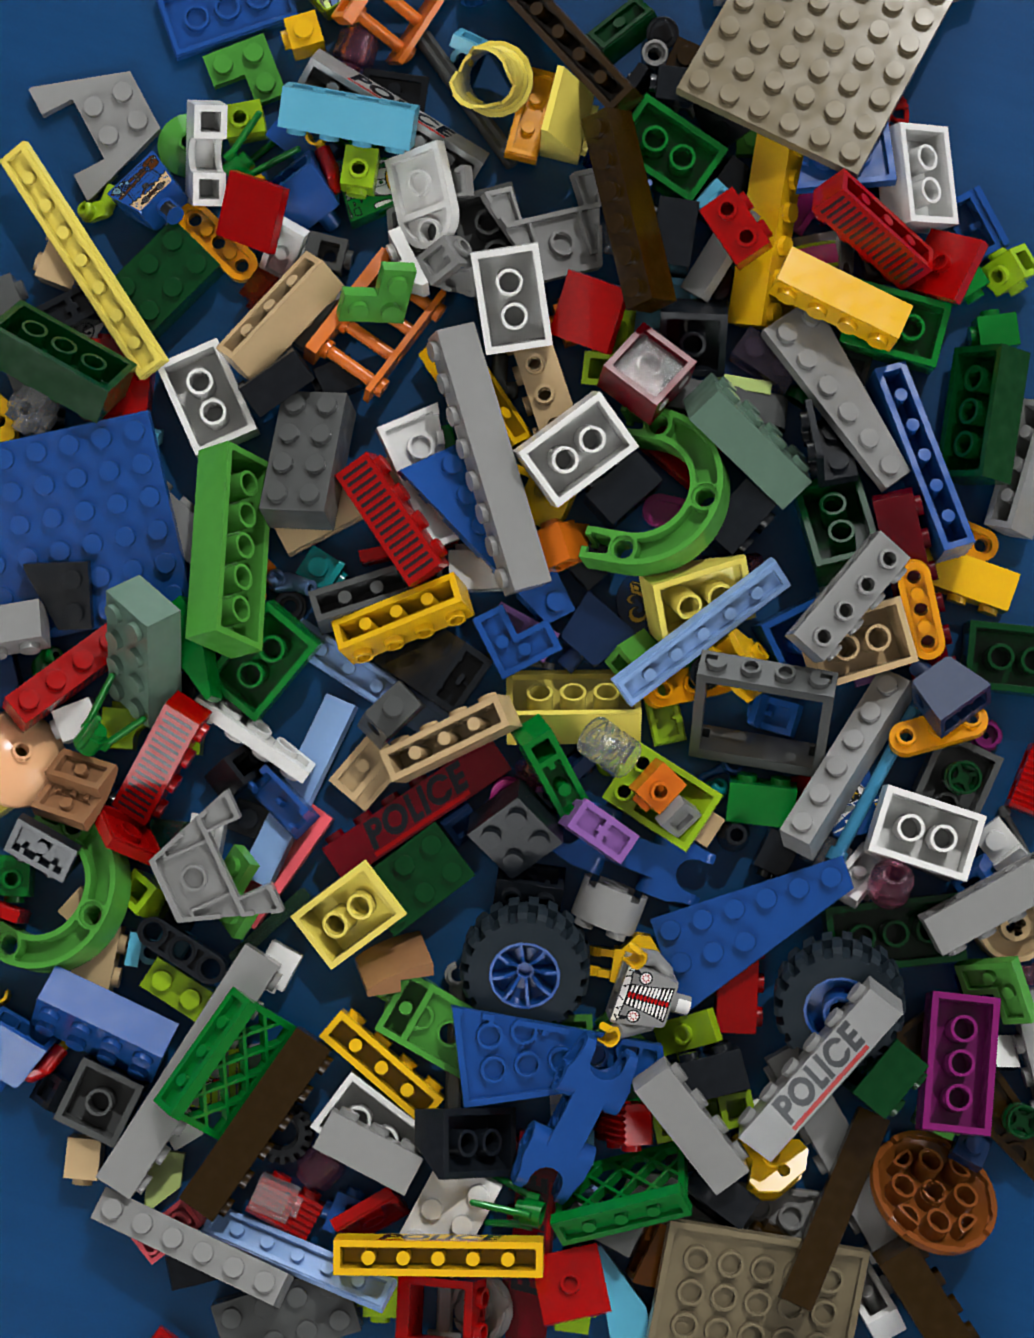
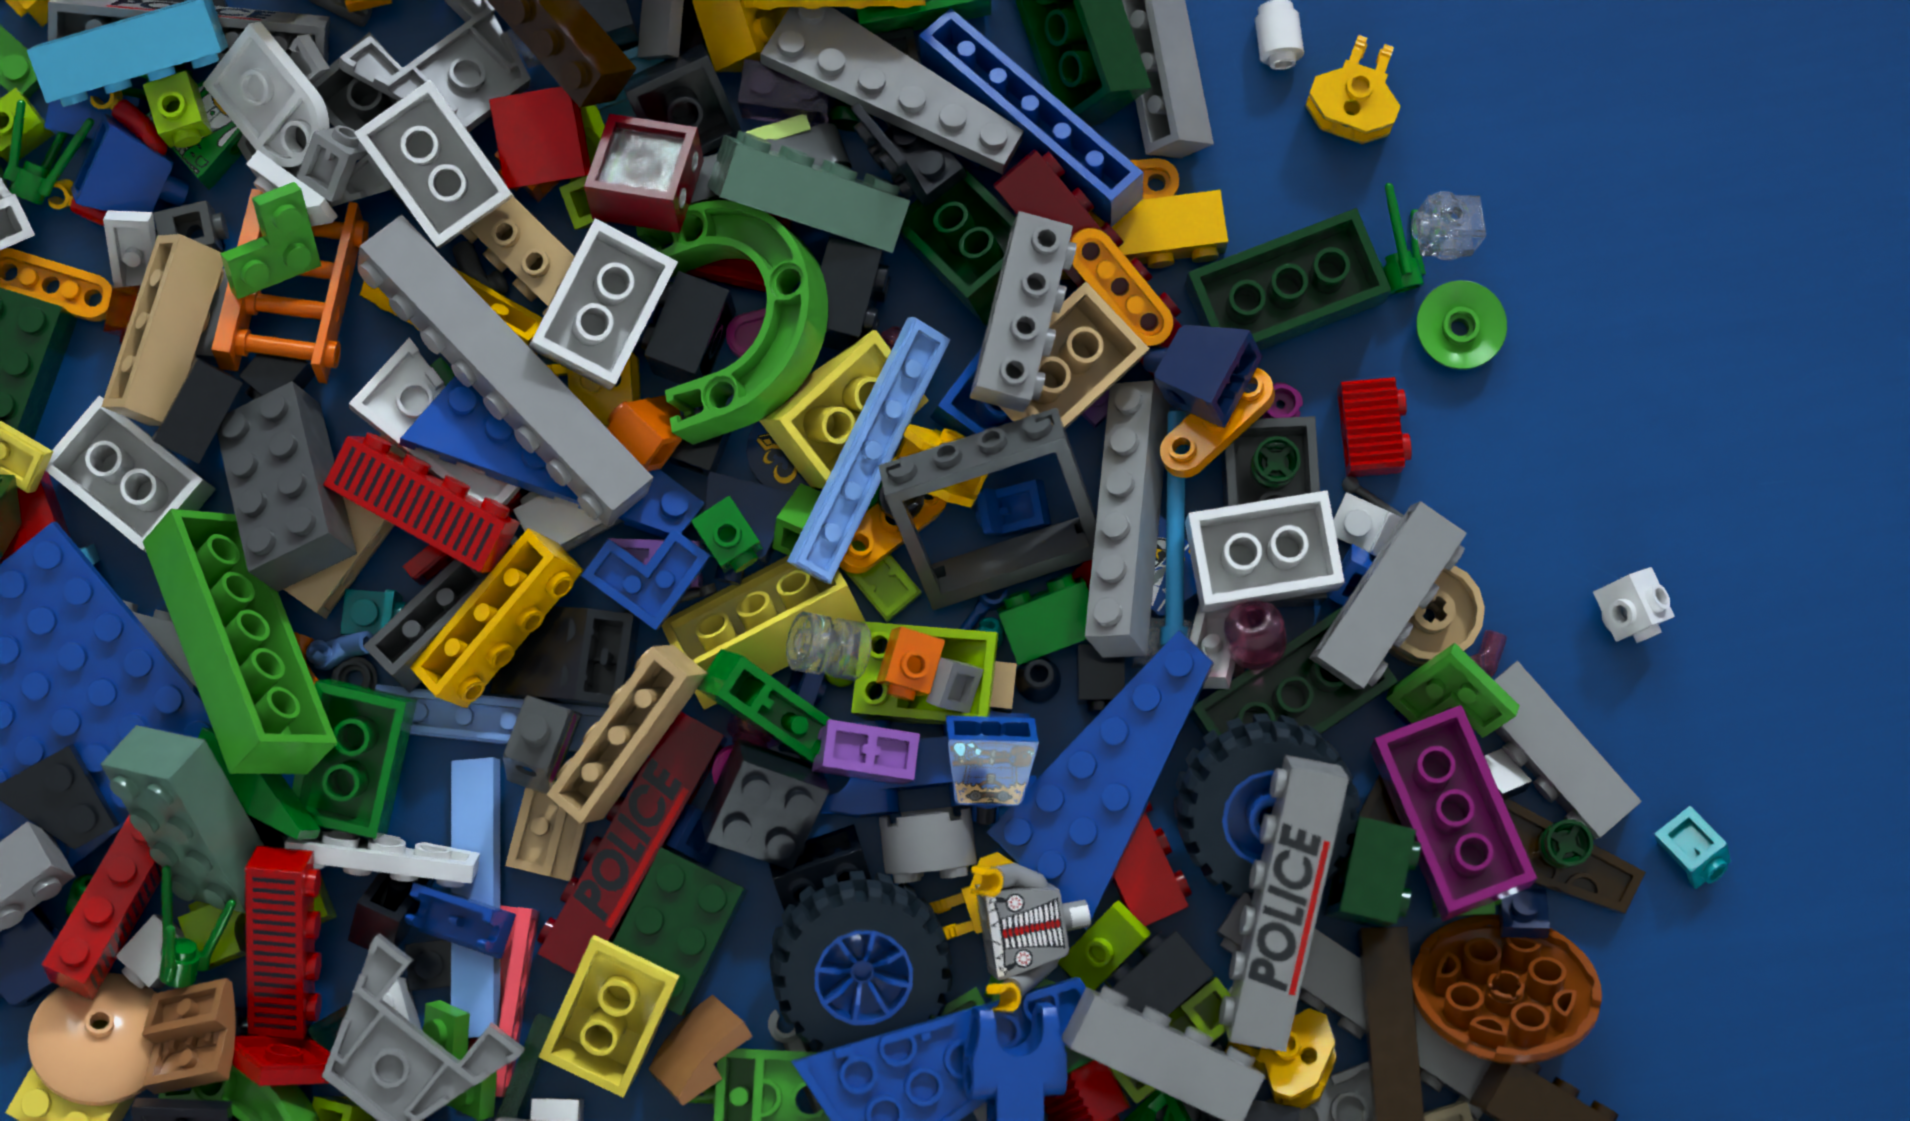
camera: 20 degrees left, 5 degrees down
(252, 211) = (70, 223): red tile -> none
(580, 641) = (728, 536): none -> green brick
(676, 877) = (990, 762): none -> torso

